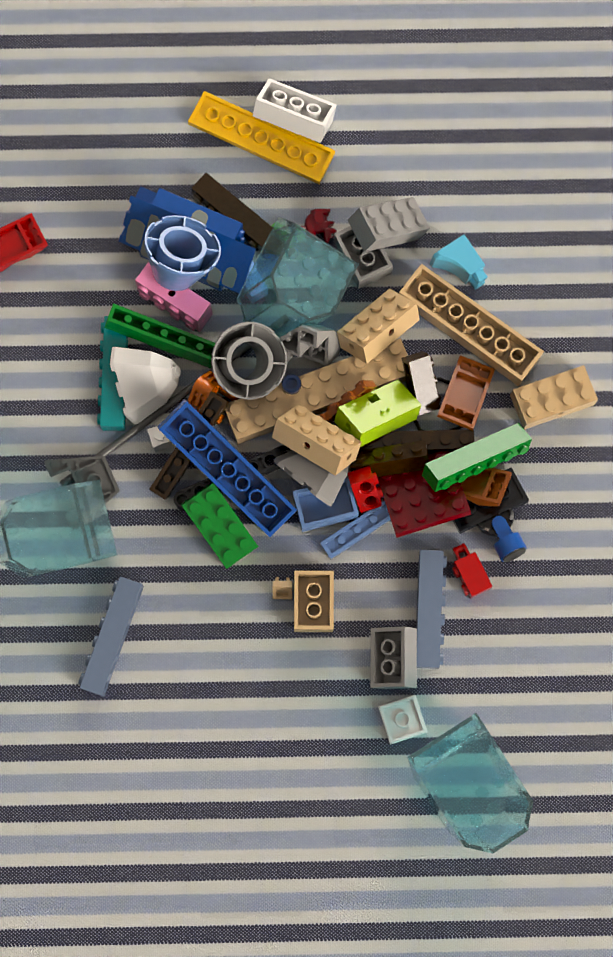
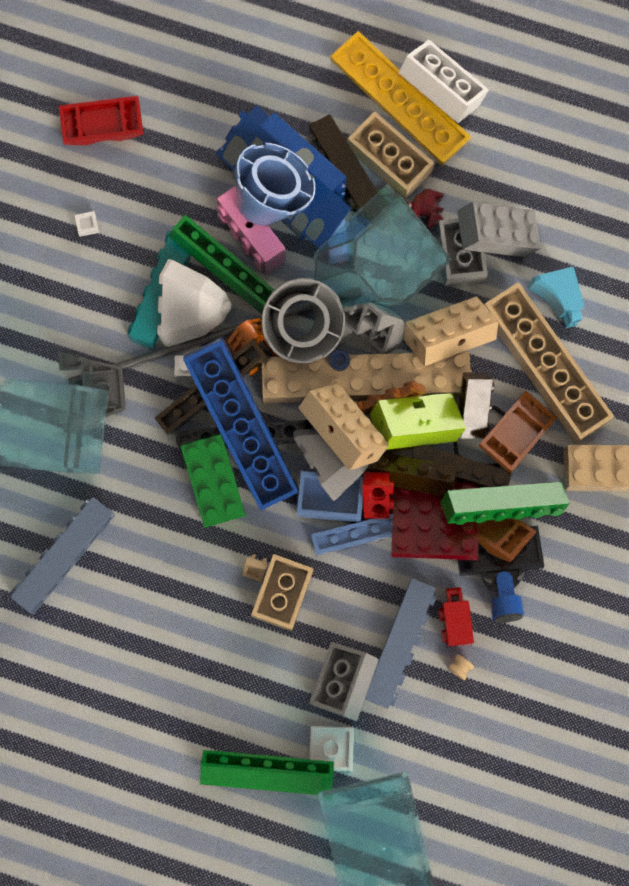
camera: 15 degrees right, 0 degrees up
(27, 341) = (86, 223): none -> white plate
(271, 190) = (390, 155): none -> tan brick
(354, 759) = (266, 772): none -> green brick
(488, 611) = (460, 667): none -> tan wheel

